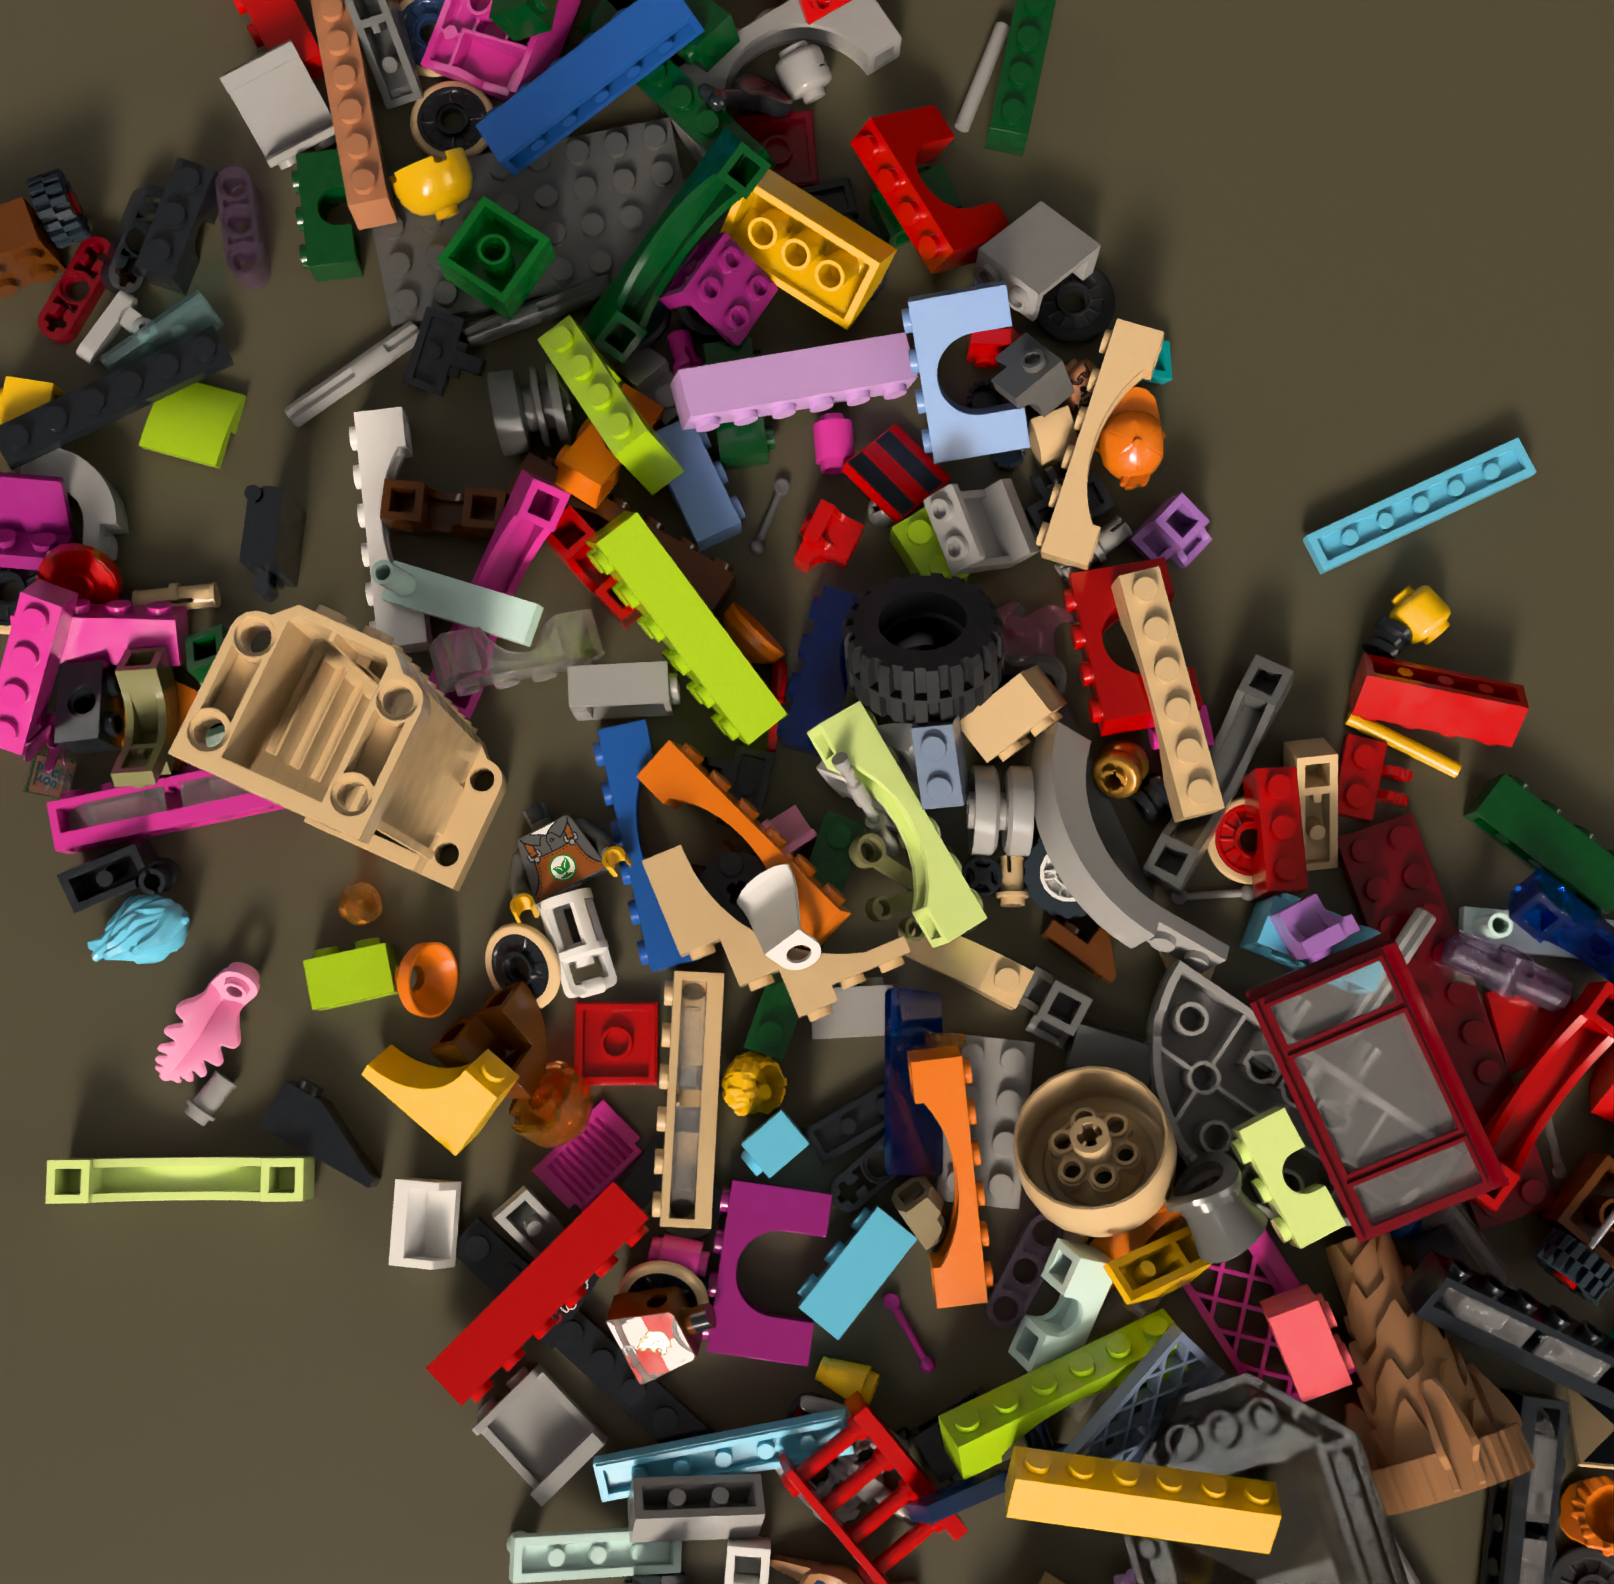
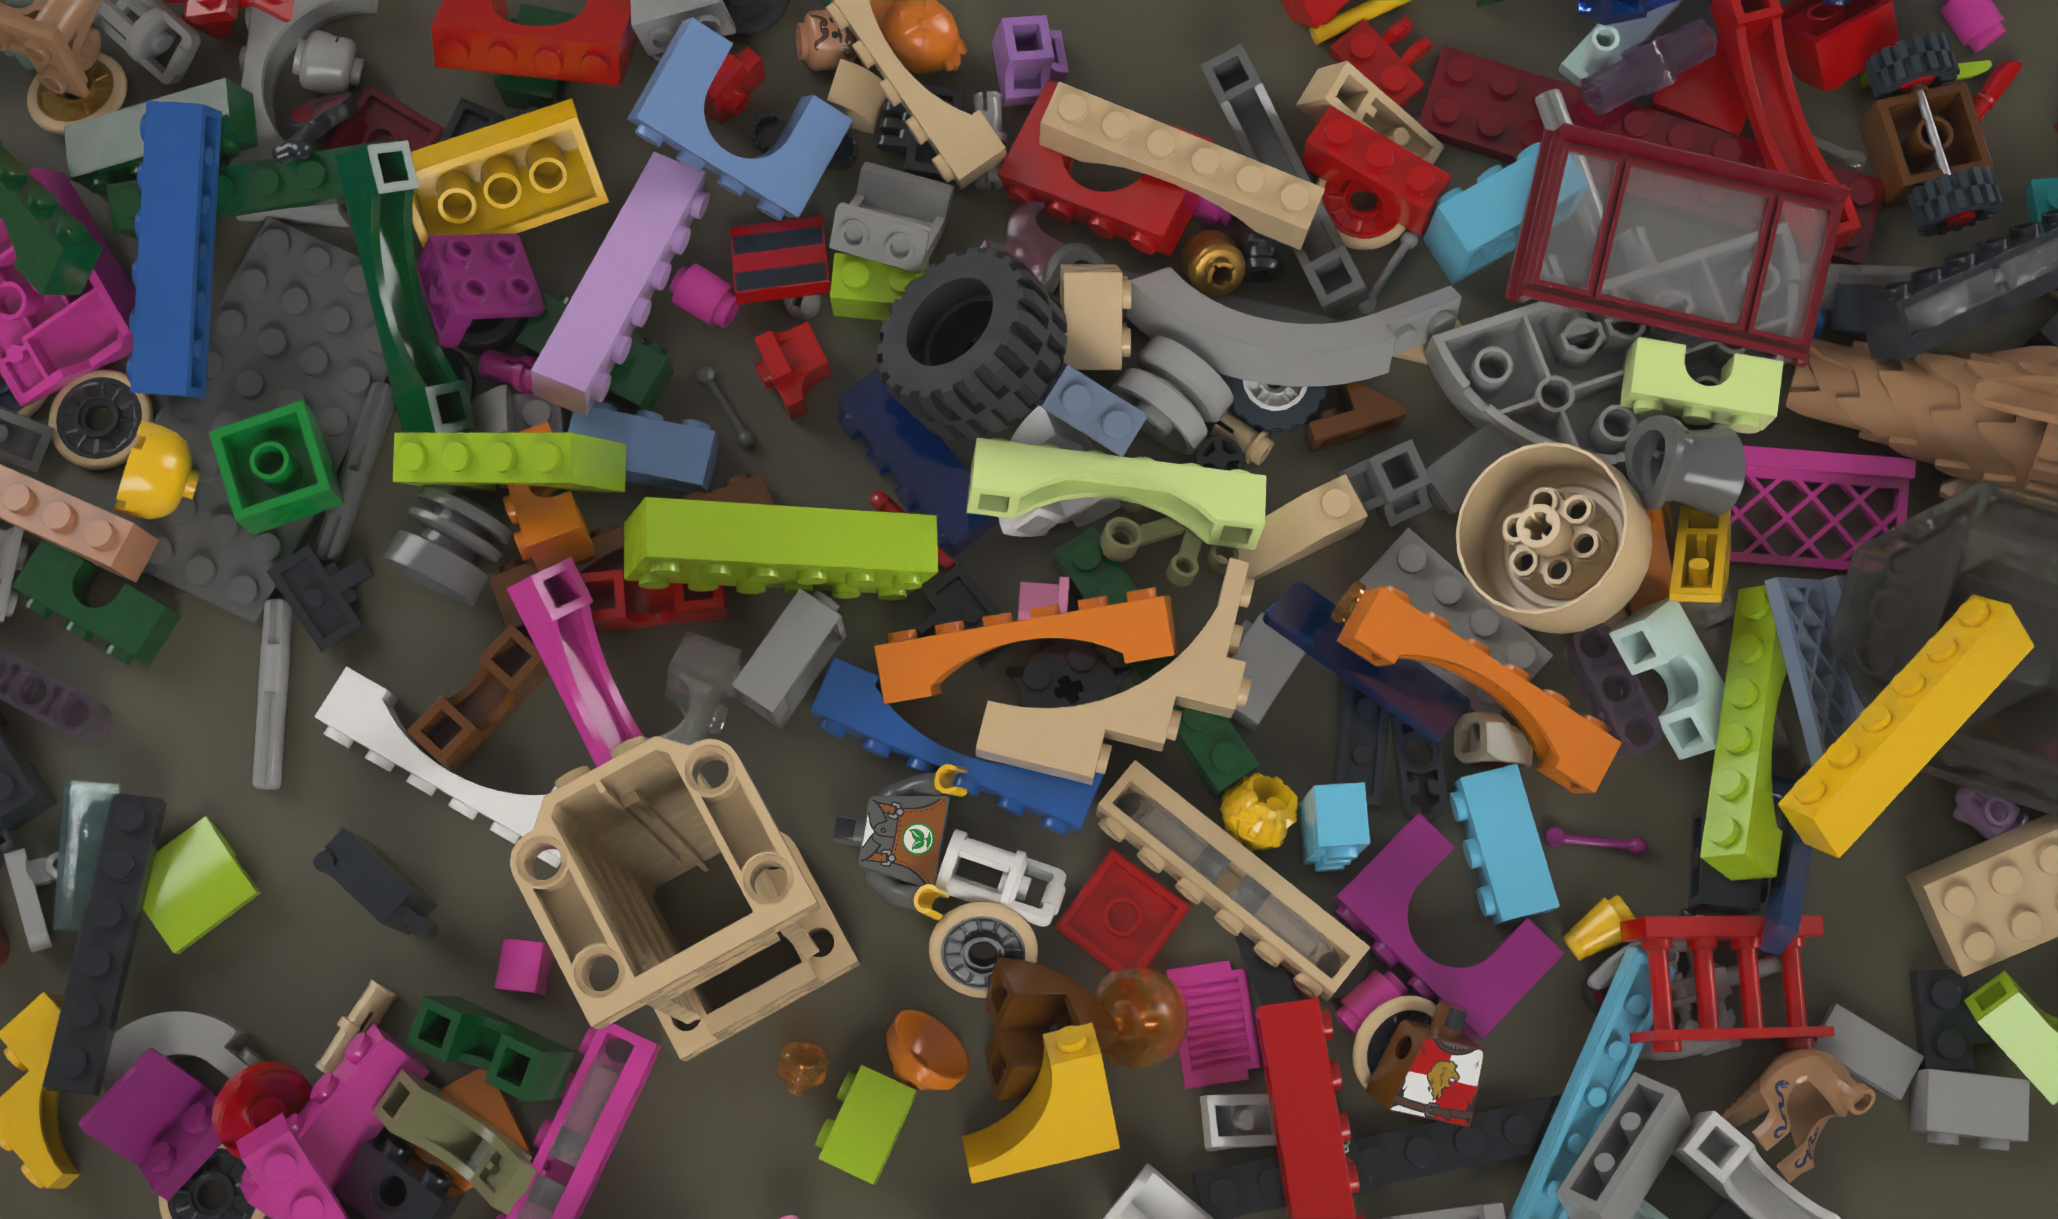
camera: 50 degrees left, 5 degrees down
(457, 601) = (588, 741): light aqua piece -> none
(751, 636) = (834, 497): orange piece -> none
(774, 915) = (1122, 659): white piece -> none
(875, 820) = (1095, 514): light grey piece -> none
(1032, 376) = (789, 66): dark grey brick -> none
(1306, 1344) = (1863, 475): coral brick -> none
(1310, 929) = (1493, 194): medium lavender brick -> none

